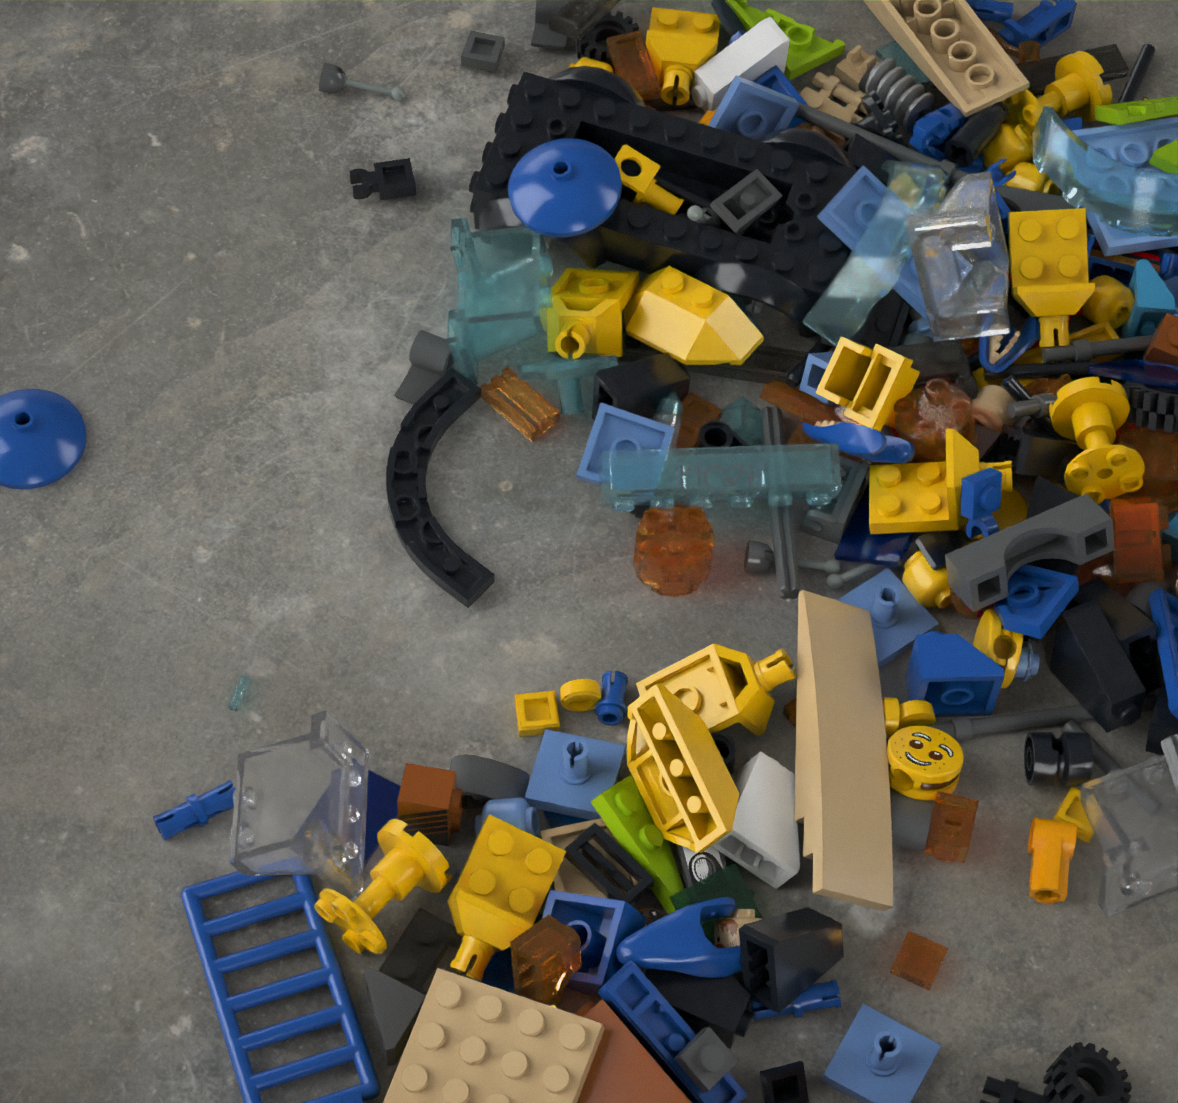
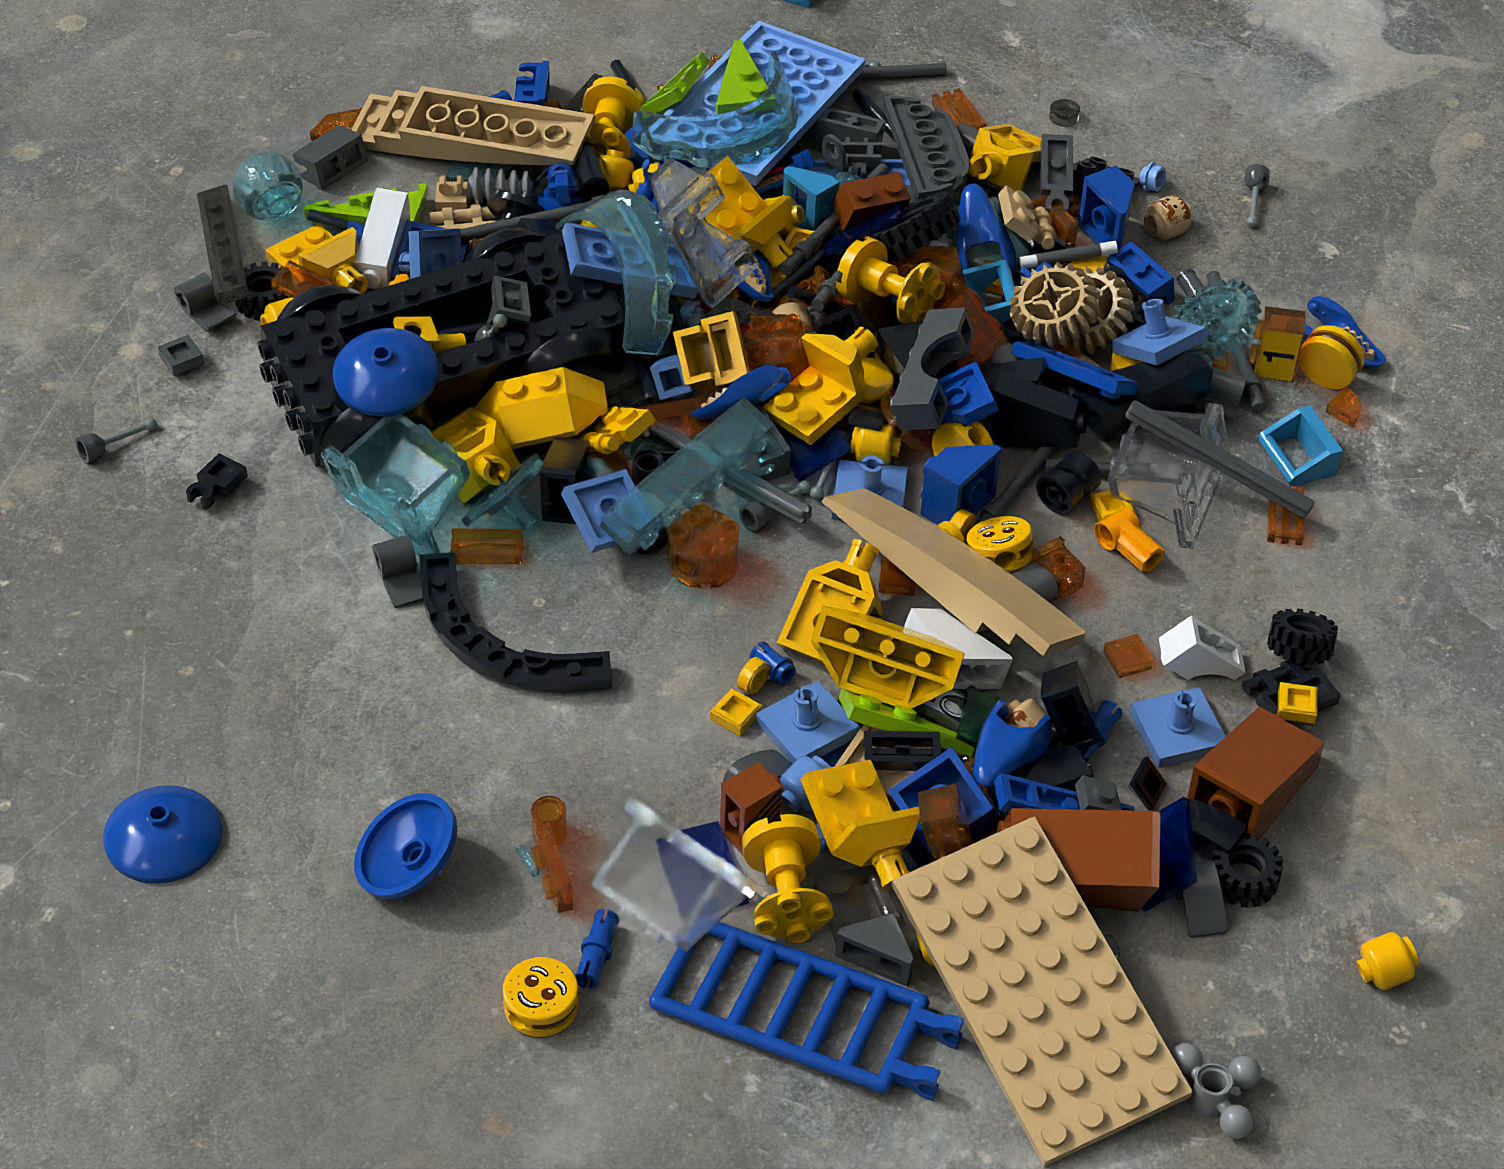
camera: 45 degrees left, 10 degrees down
(111, 810) = (540, 996): none -> yellow head
(152, 601) = (405, 846): none -> blue dish
(251, 698) = (548, 831): none -> clear orange plate
(733, 387) = (617, 427): none -> yellow plate
(979, 498) = (869, 358): blue plate -> none
(980, 1016) = (1200, 650): none -> white arch

